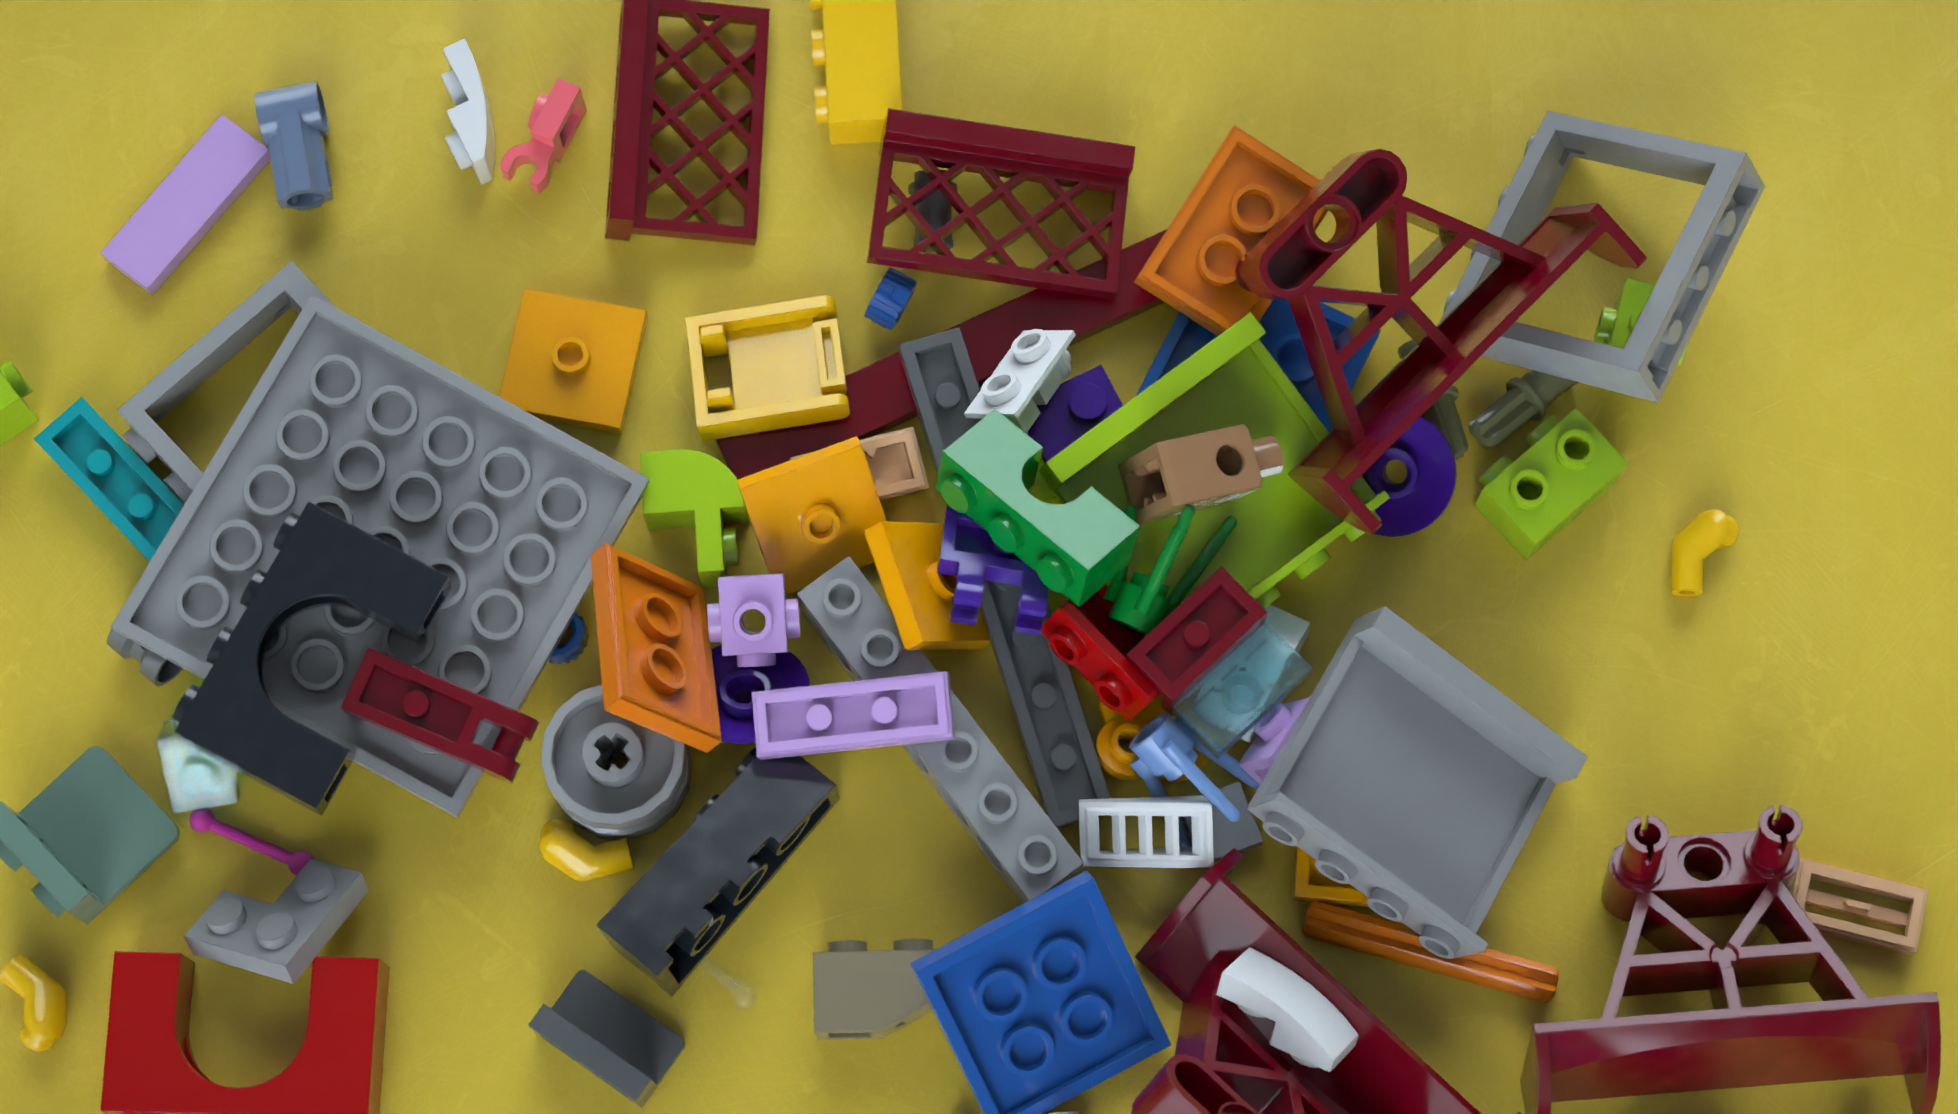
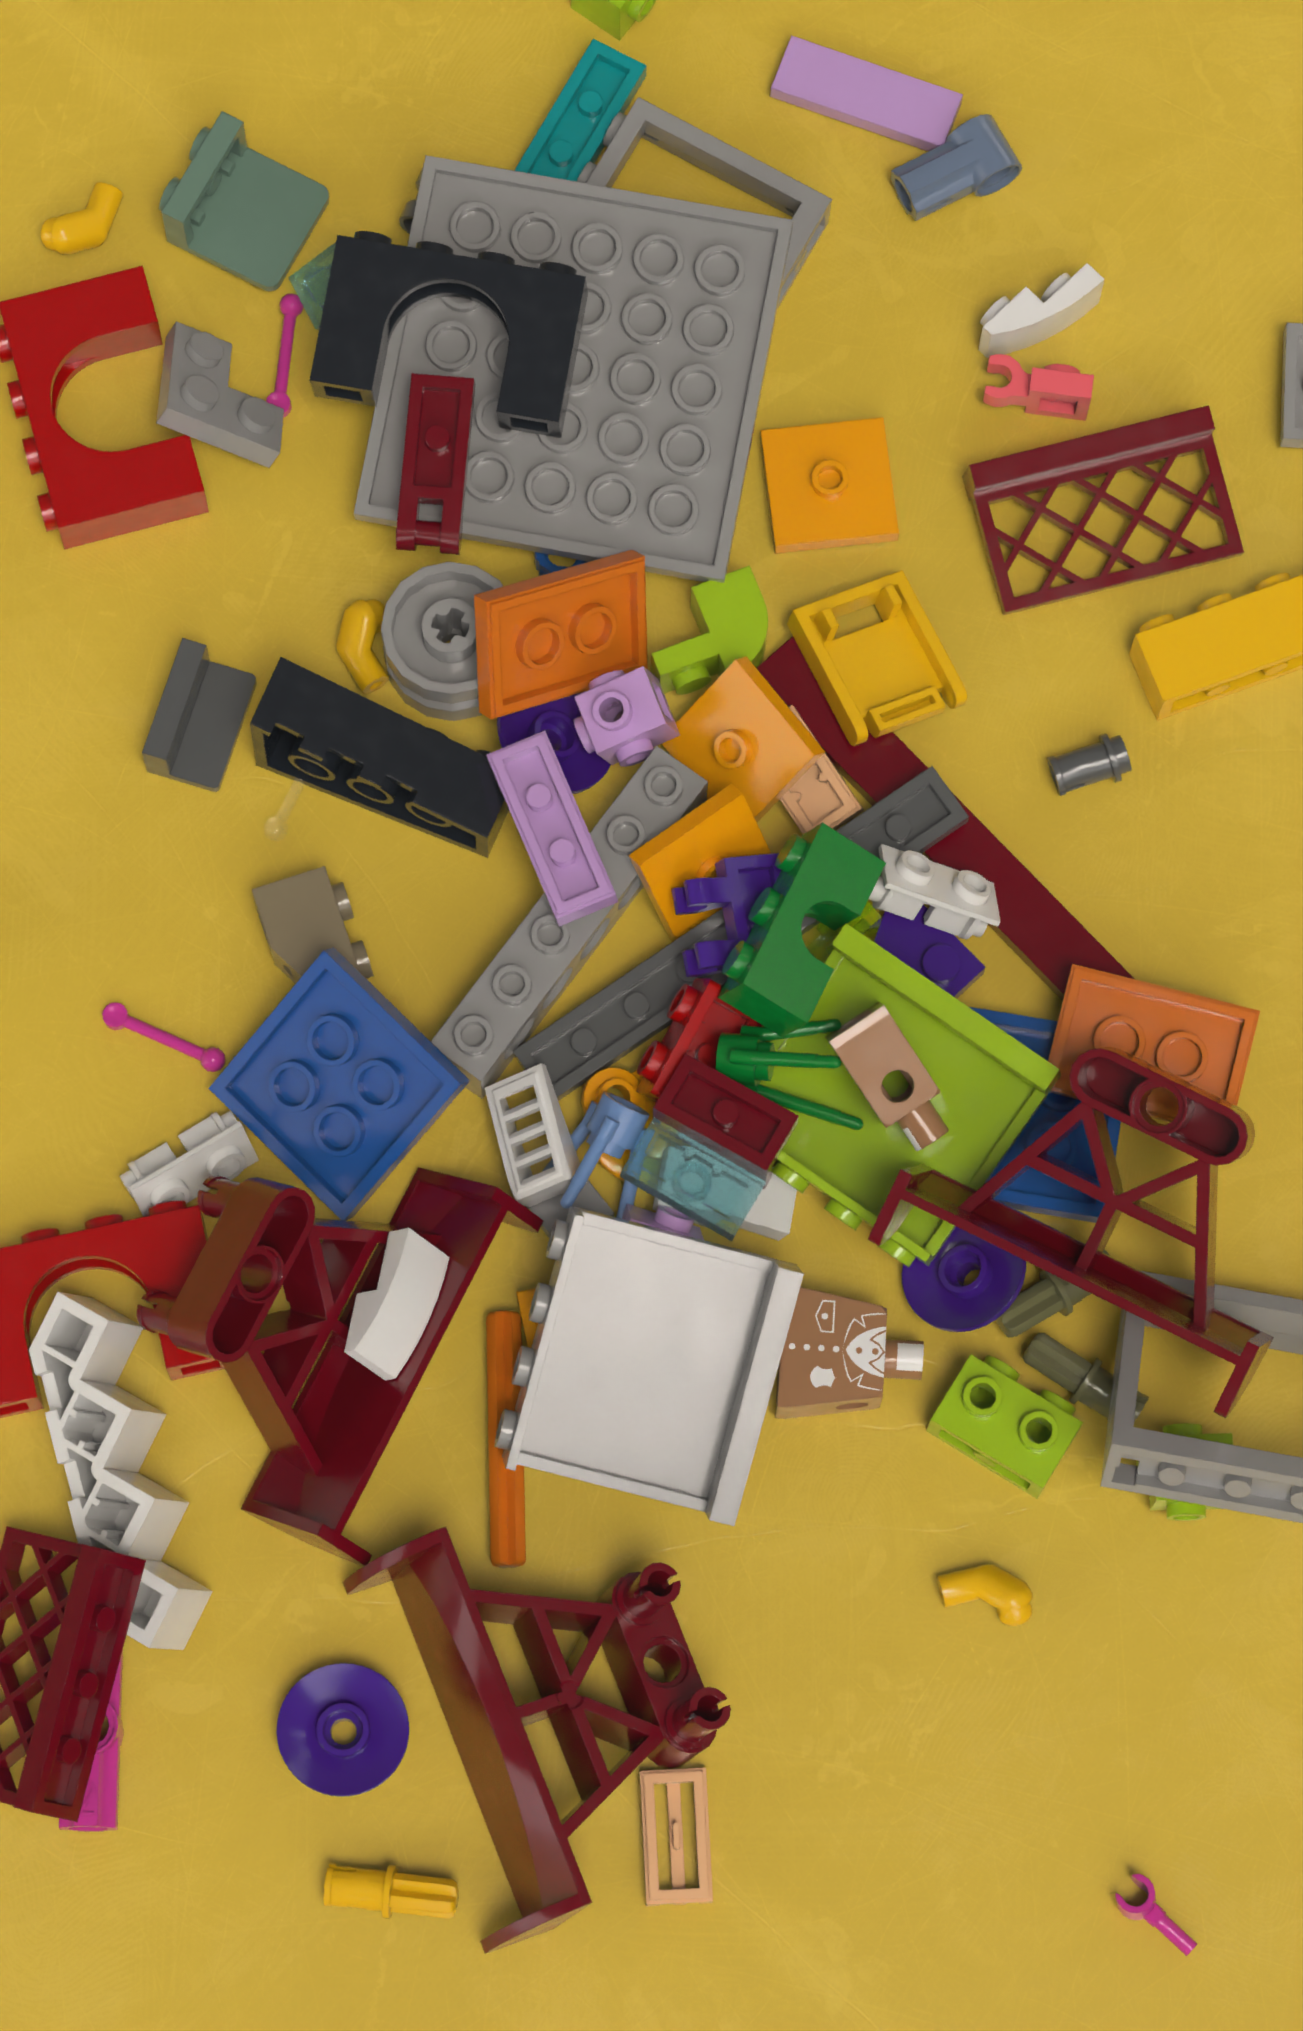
camera: 70 degrees right, 0 degrees up
(890, 299) = (985, 751): blue axle -> none
(1011, 154) = (1161, 808): dark red fence -> none
(1451, 600) = (839, 1357): none -> medium nougat torso

